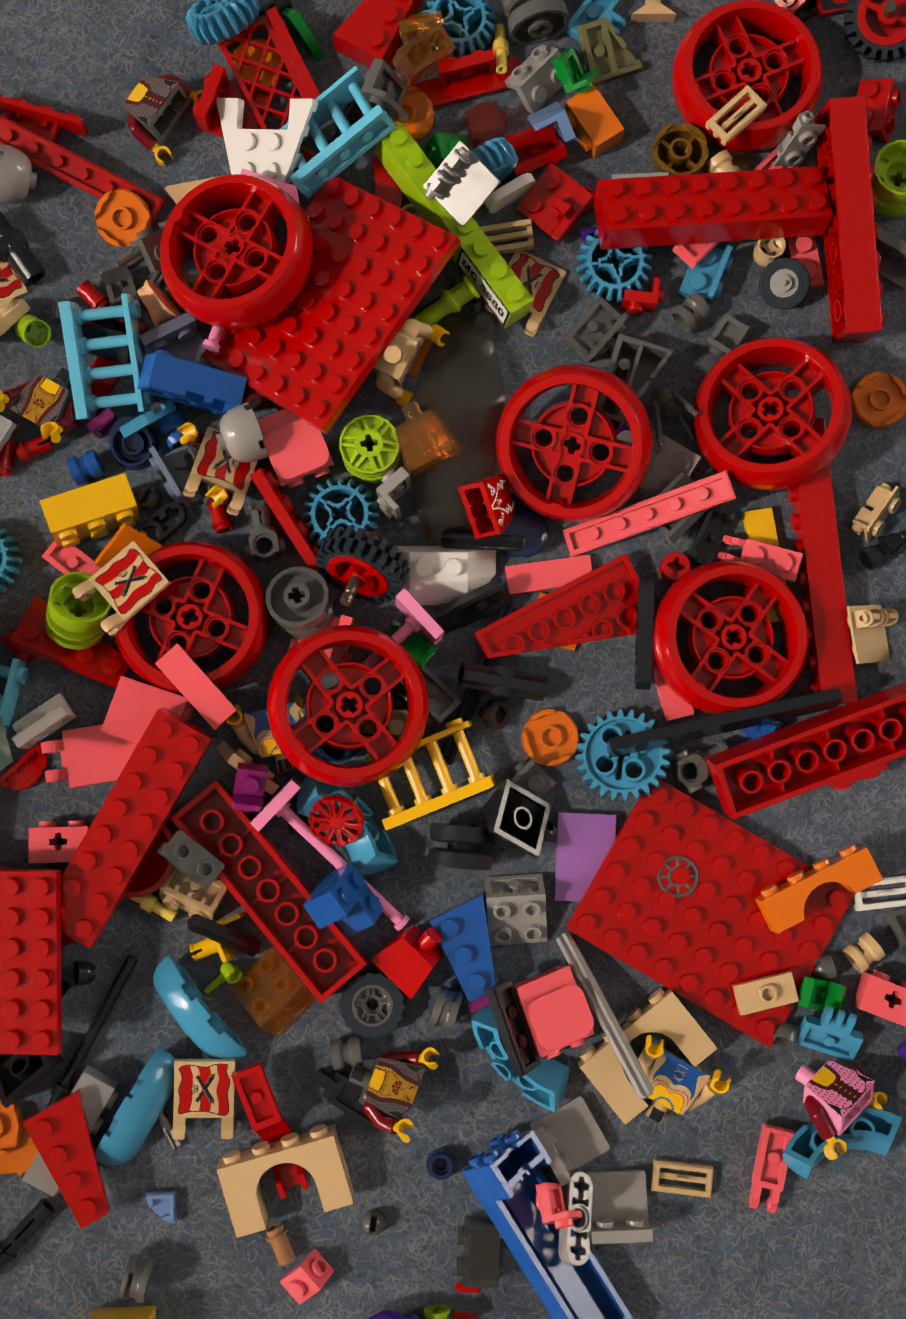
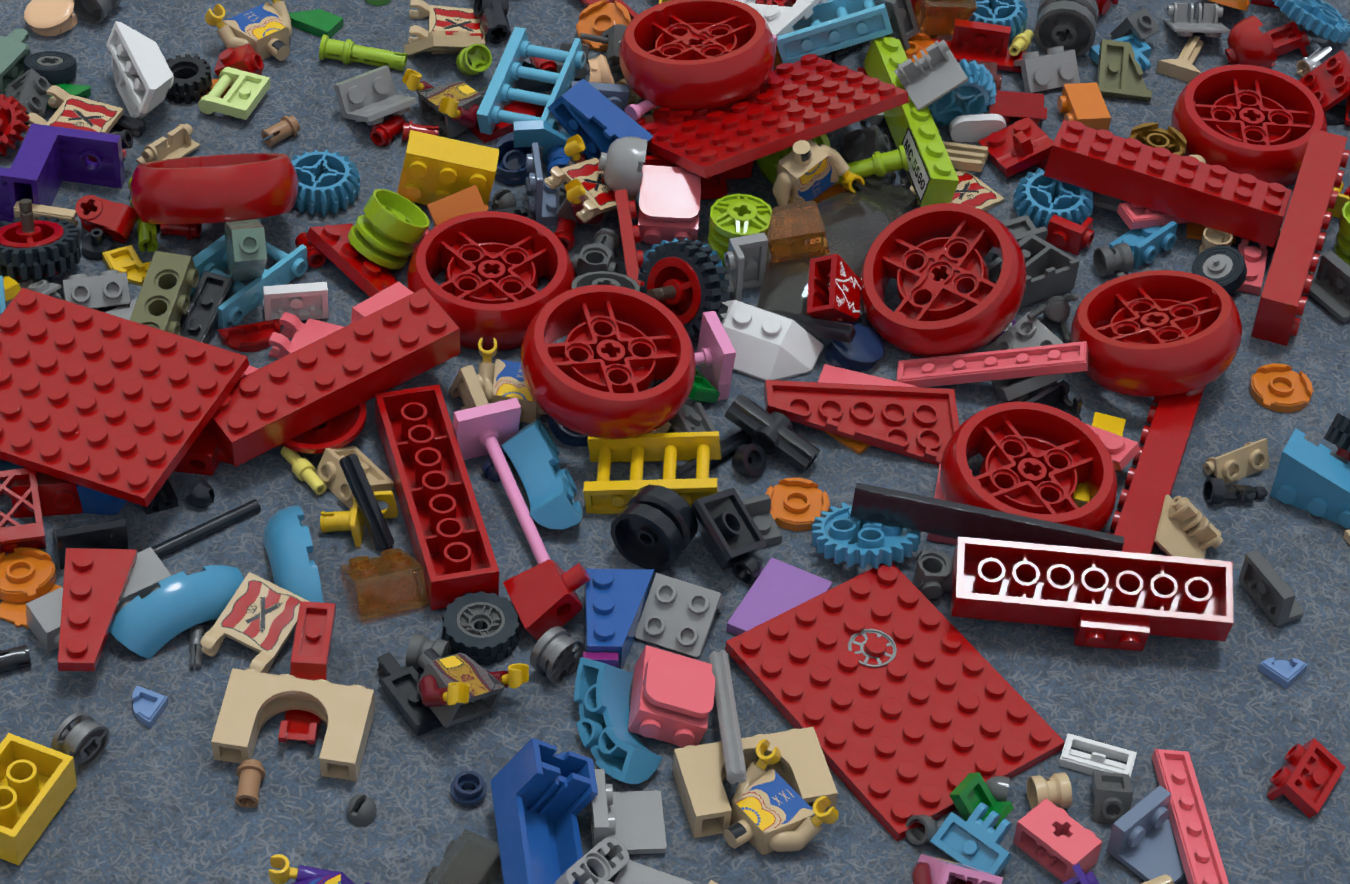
camera: 20 degrees right, 40 degrees down
(102, 423) = (493, 133): magenta tile -> none
(126, 583) = (444, 218): flag -> none
(190, 859) = (372, 423): dark grey bracket -> none
(196, 686) = (468, 304): coral tile -> none
(229, 973) = (337, 552): lime hand -> none
(249, 787) = (470, 393): magenta bracket -> none
(307, 1277) = (256, 821): coral bracket -> none
(336, 820) = (538, 458): red wheel -> none
(345, 900) = (508, 518): blue brick -> none
(472, 606) = (781, 368): black hinge -> none
(513, 1027) = (622, 676): black tile -> none
(552, 1207) = (580, 832): coral bracket -> none
(553, 114) = (1043, 83): medium blue panel -> none
(571, 74) = (1078, 65): green bracket -> none
(644, 633) = (930, 461): black beam -> none
(719, 131) = (1221, 128): tan tile -> none
(765, 993) = (917, 771): tan plate -> none
(784, 904) = (1063, 699): orange arch -> none
(799, 141) = (1280, 164): light grey hinge -> none

